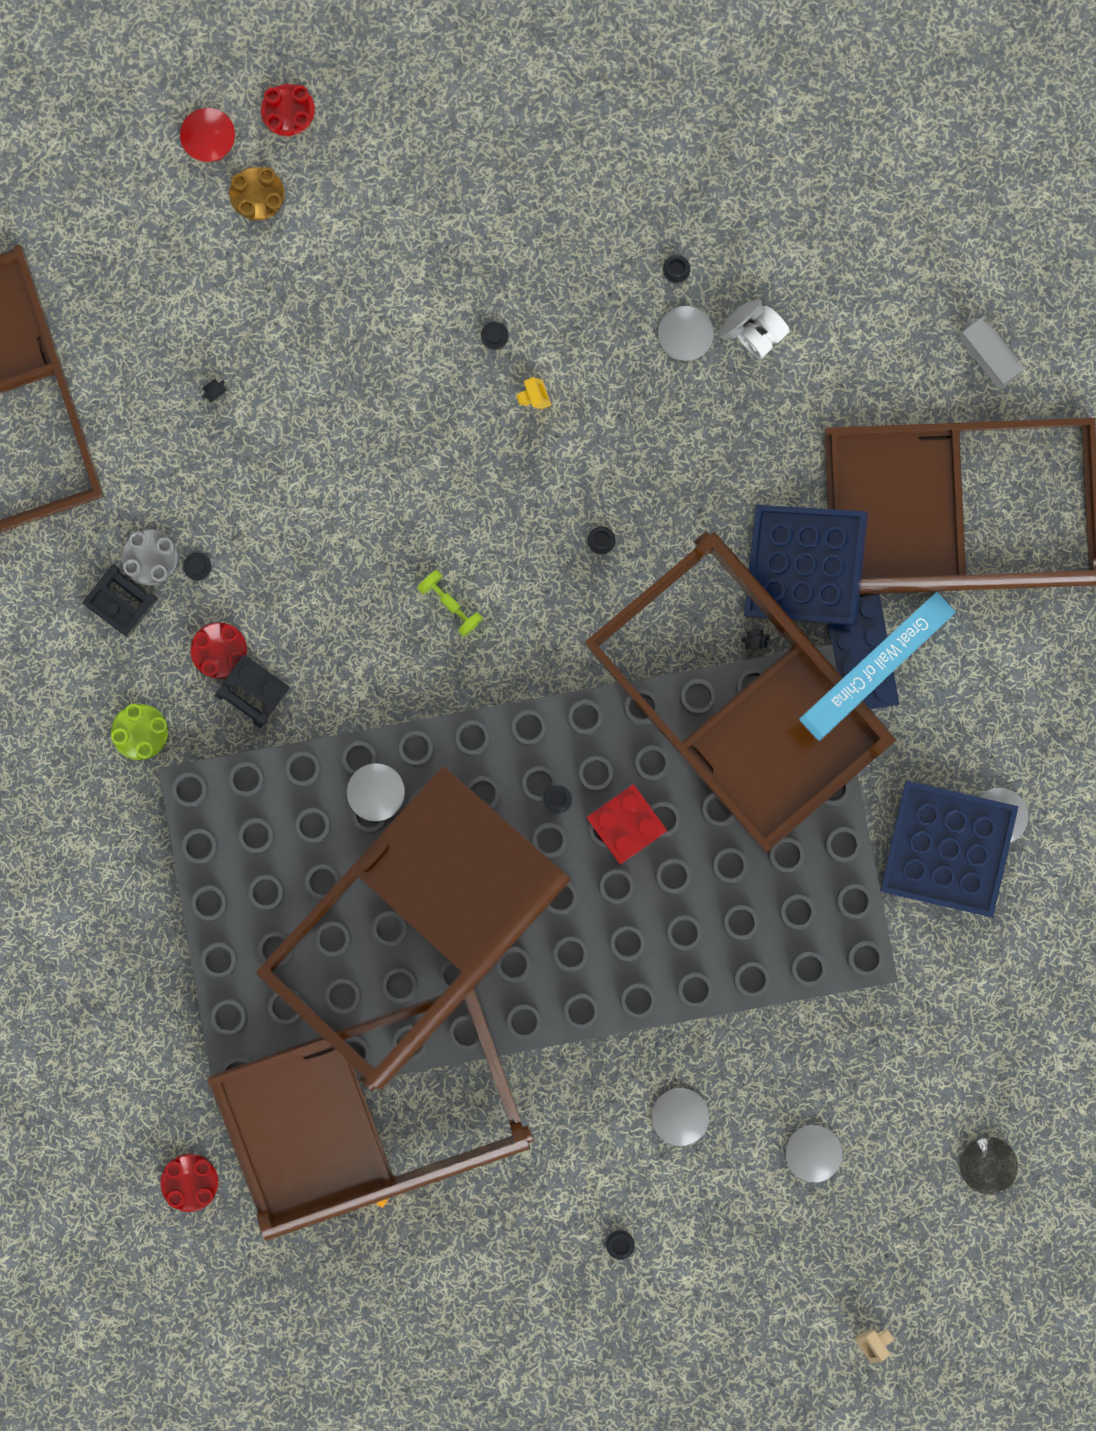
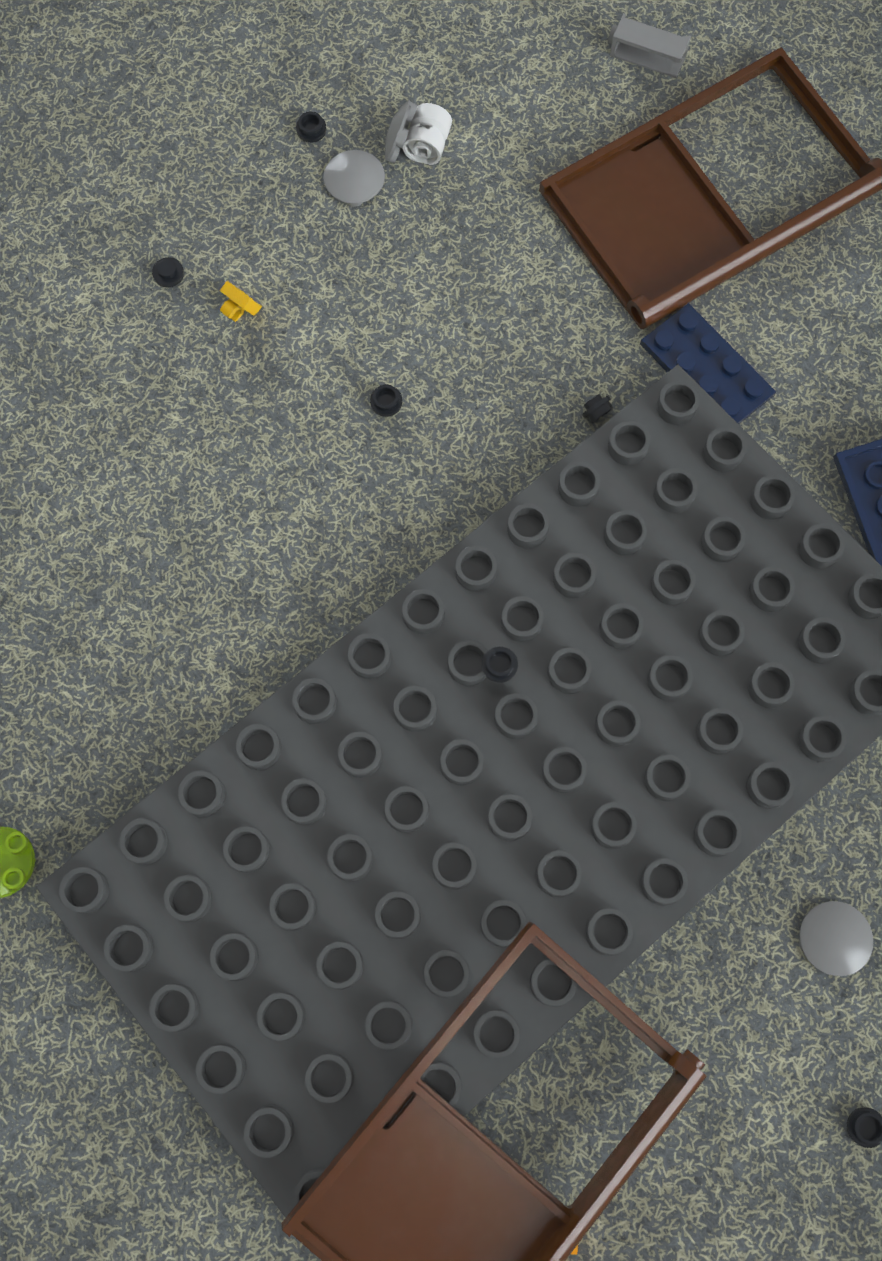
camera: 30 degrees left, 10 degrees down
(217, 649) = (43, 725): red dish -> none
(256, 682) = (105, 735): black plate -> none
(375, 792) = (296, 770): light grey dish -> none
(430, 583) = (235, 531): lime wheel -> none
(455, 880) = (447, 813): reddish brown door -> none
(626, 824) = (589, 649): red plate -> none
(760, 753) = (694, 470): reddish brown door -> none
(809, 562) = (603, 309): dark blue plate -> none
(877, 666) = (740, 355): medium azure tile -> none

